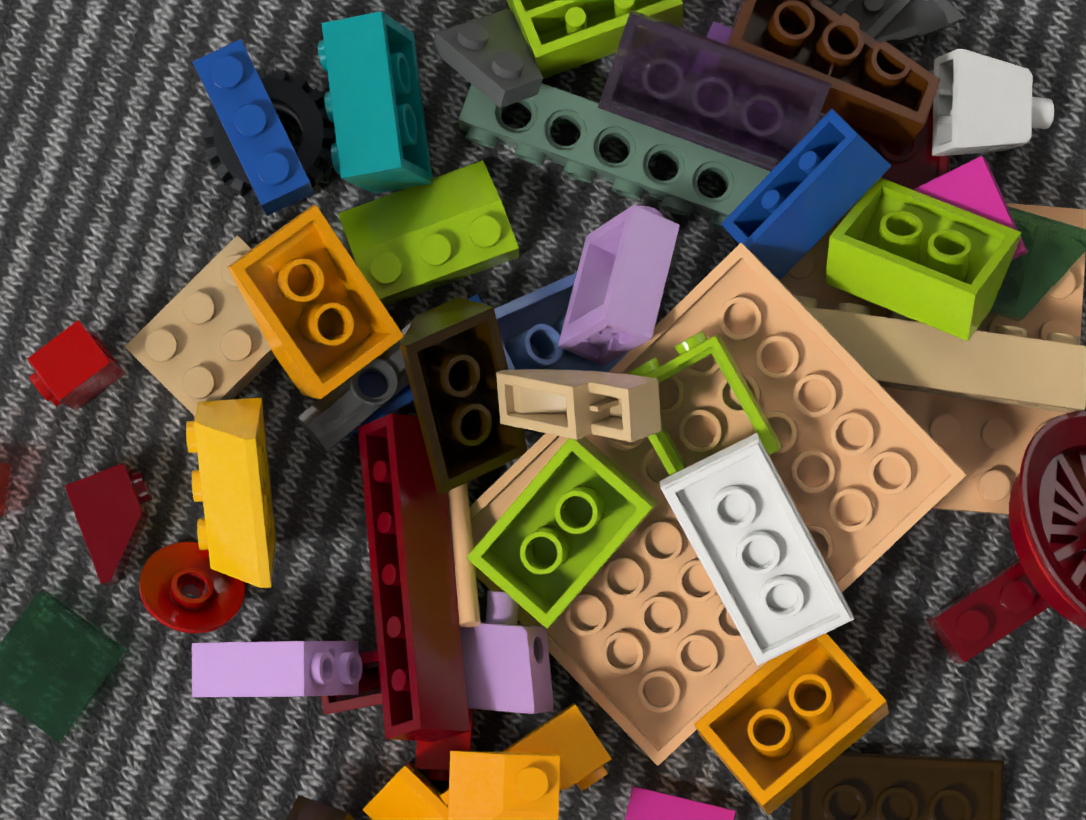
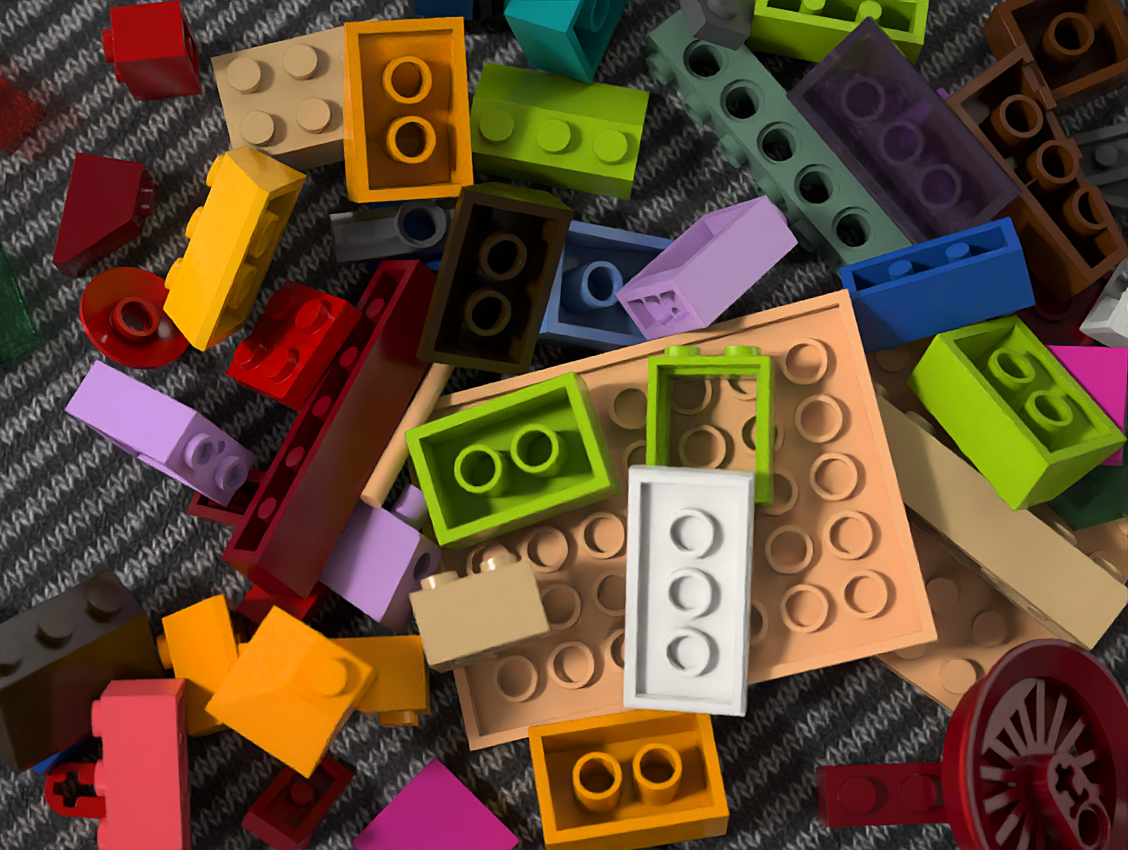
camera: 30 degrees right, 5 degrees down
(330, 535) = (293, 343): none -> red plate
(580, 403) = (602, 347): tan slope -> none
(609, 662) = (479, 614): none -> tan brick

